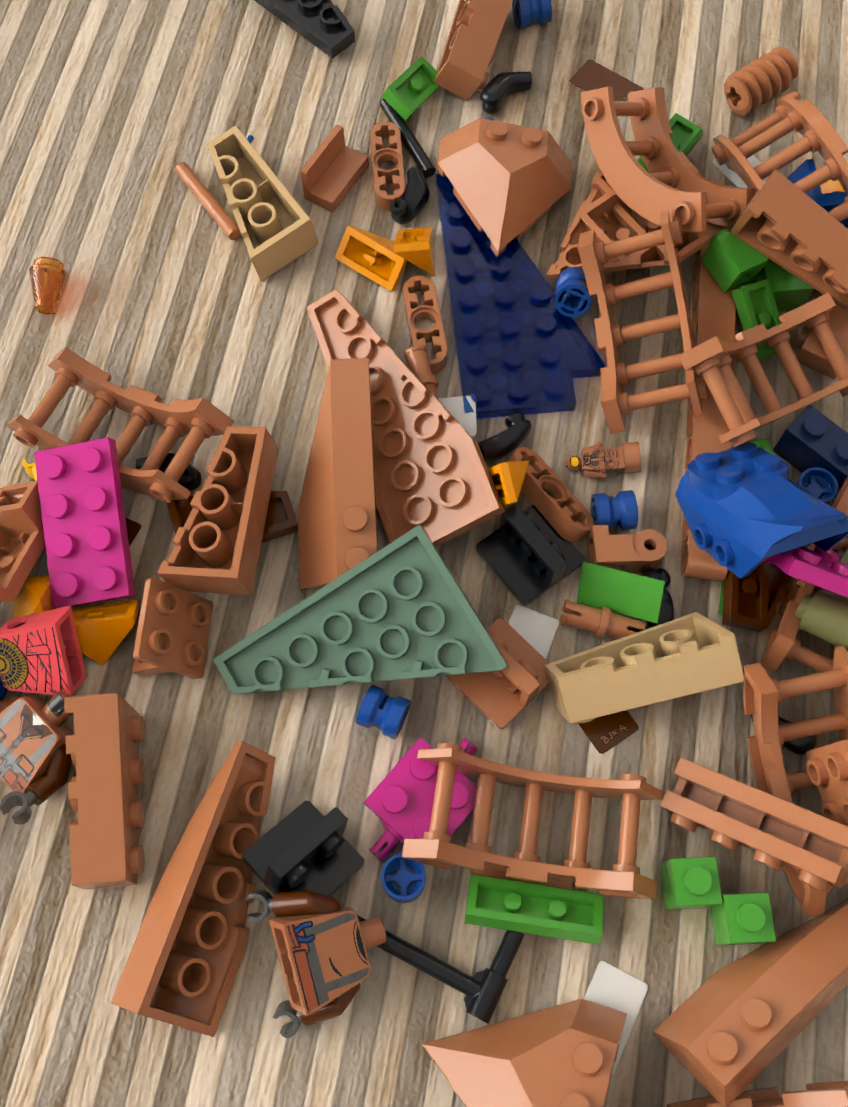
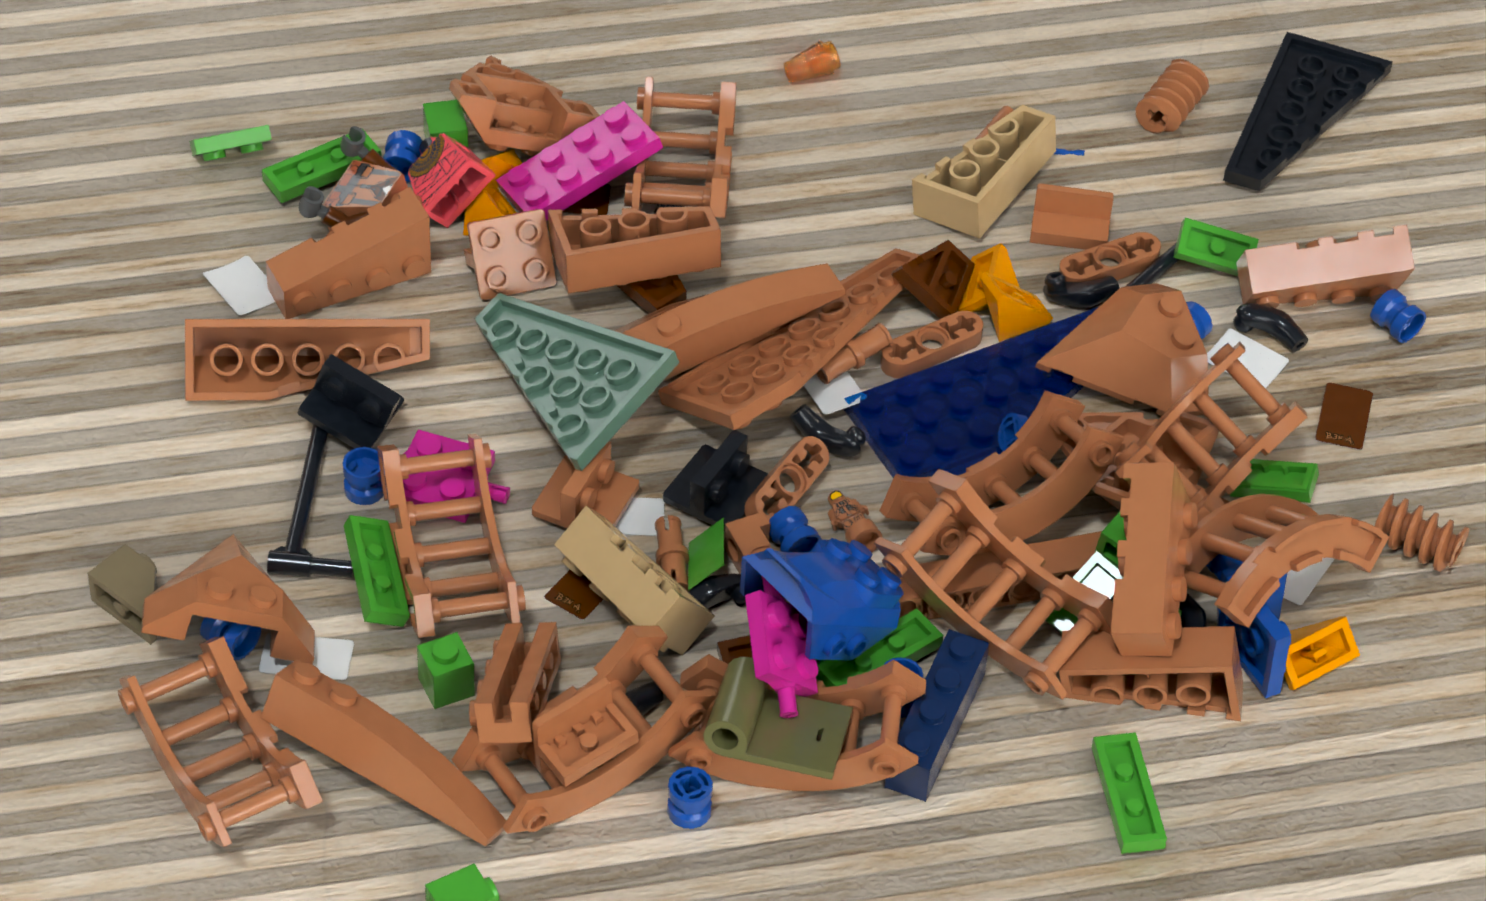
camera: 65 degrees right, 20 degrees down
(67, 917) = (241, 285): none -> white sticker
(233, 48) = (1172, 97): none -> nougat piece
(318, 952) = (276, 425): torso -> none
(361, 288) = (937, 278): none -> reddish brown wing
(383, 711) = (506, 421): blue wheel -> none
(509, 479) = (768, 427): light orange slope -> none
(530, 113) = (1258, 359): none -> white sticker
(743, 920) = (430, 711): bright green brick -> none

